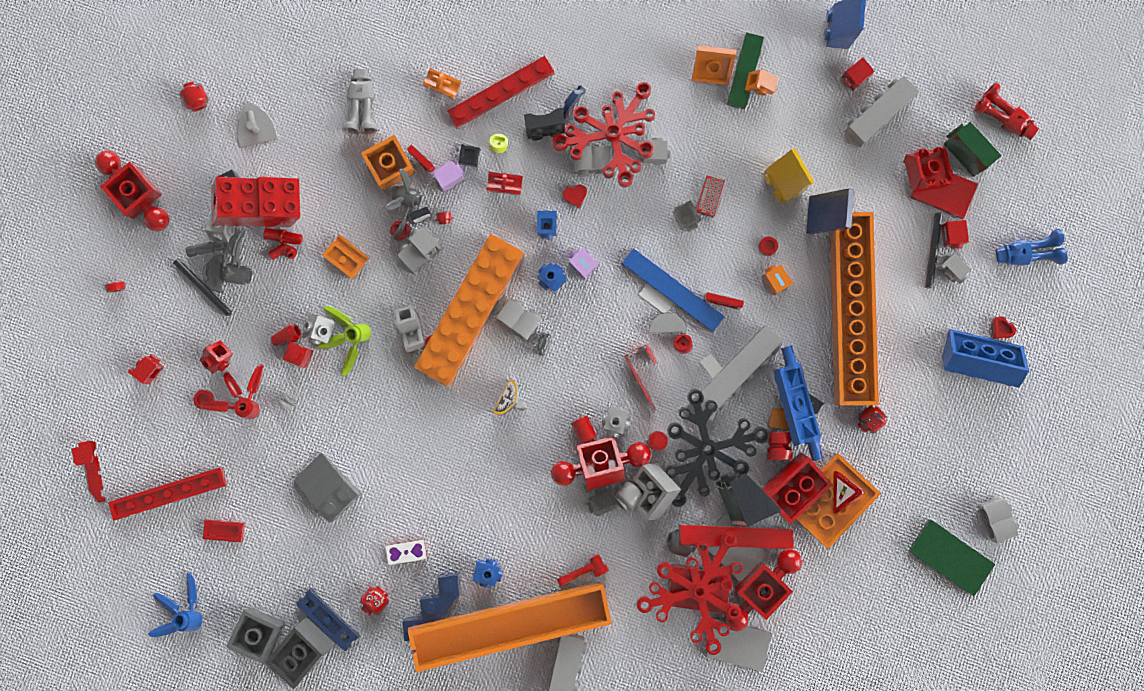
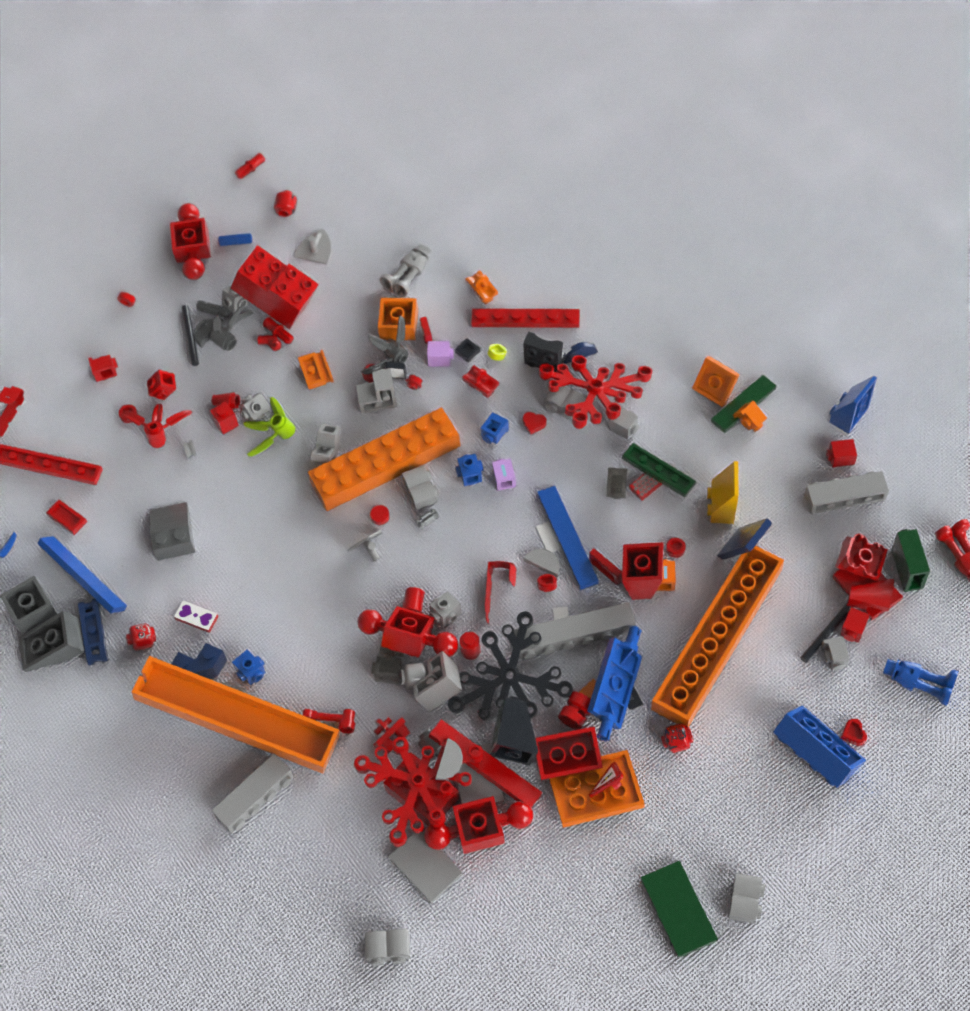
camera: 40 degrees right, 25 degrees down
(127, 72) = (250, 166): none -> red axle
(172, 162) = (236, 239): none -> blue axle
(279, 576) = (82, 574): none -> blue tile
(499, 364) = (380, 514): none -> red tile
(638, 556) = (398, 729): none -> red hips
(713, 181) = (659, 470): none -> dark green tile
(718, 562) = (450, 762): none -> light grey tile
(768, 291) = (642, 569): none -> red slope
(956, 198) = (872, 595): none -> red slope

